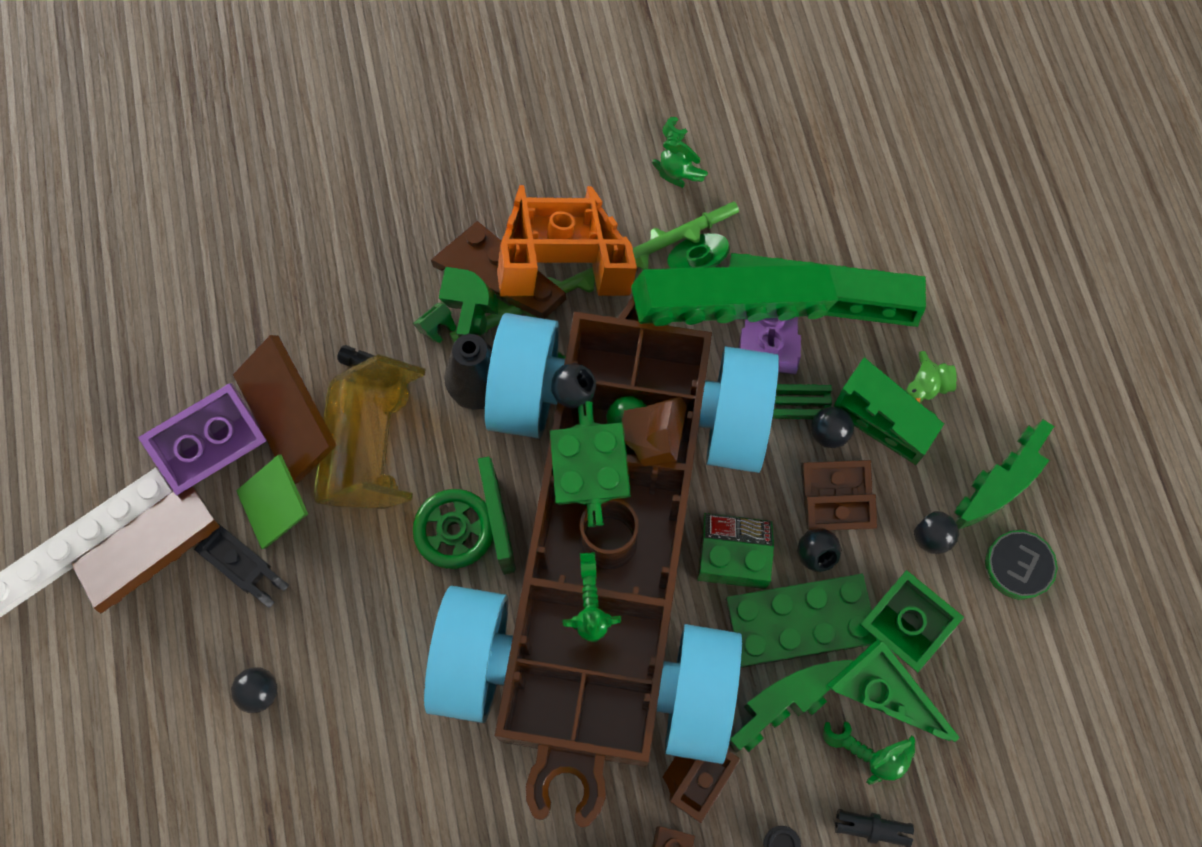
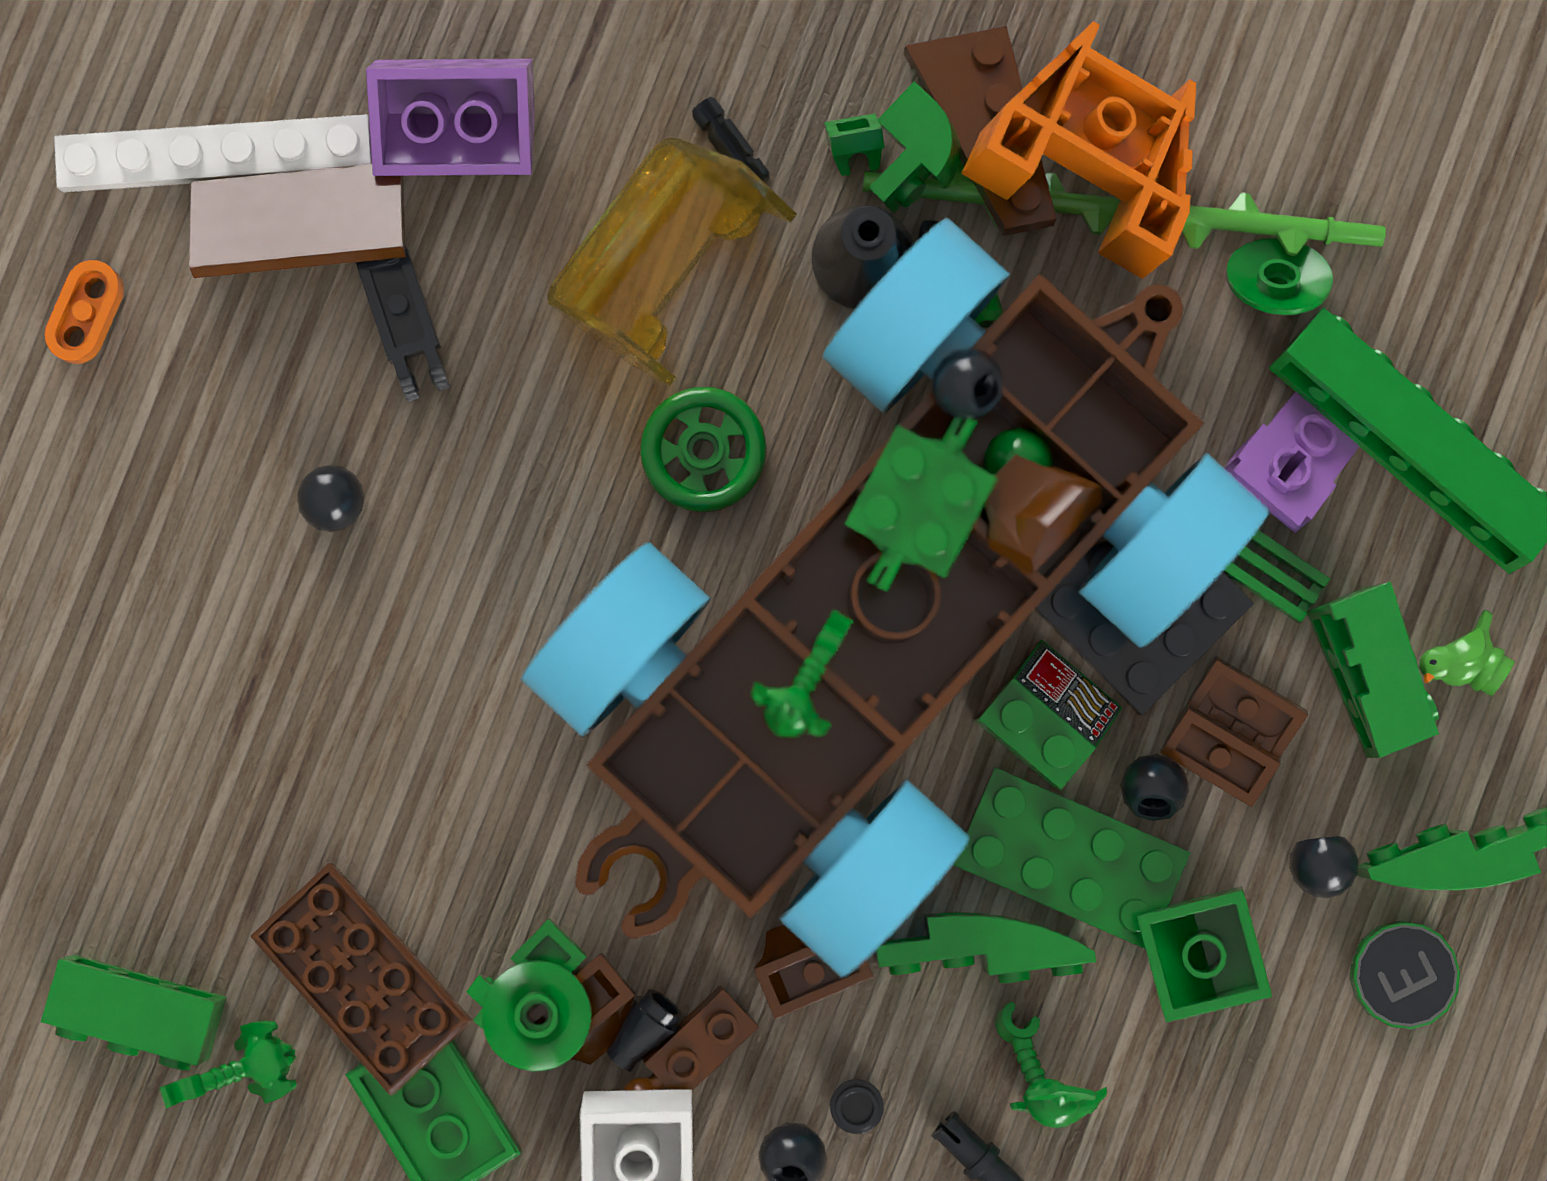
camera: 30 degrees right, 15 degrees up
(42, 678) = (78, 310): none -> orange plate
(272, 502) = (490, 263): bright green piece -> none
(284, 408) = (579, 143): reddish brown tile -> none
(496, 515) = (767, 473): green tile -> none
(678, 157) = (1346, 114): green piece -> none
(733, 293) = (1273, 385): green brick -> none
(748, 491) = (1134, 672): none -> black plate
(832, 427) = (1288, 639): black piece -> none
(885, 685) = (1114, 1007): green wing -> none

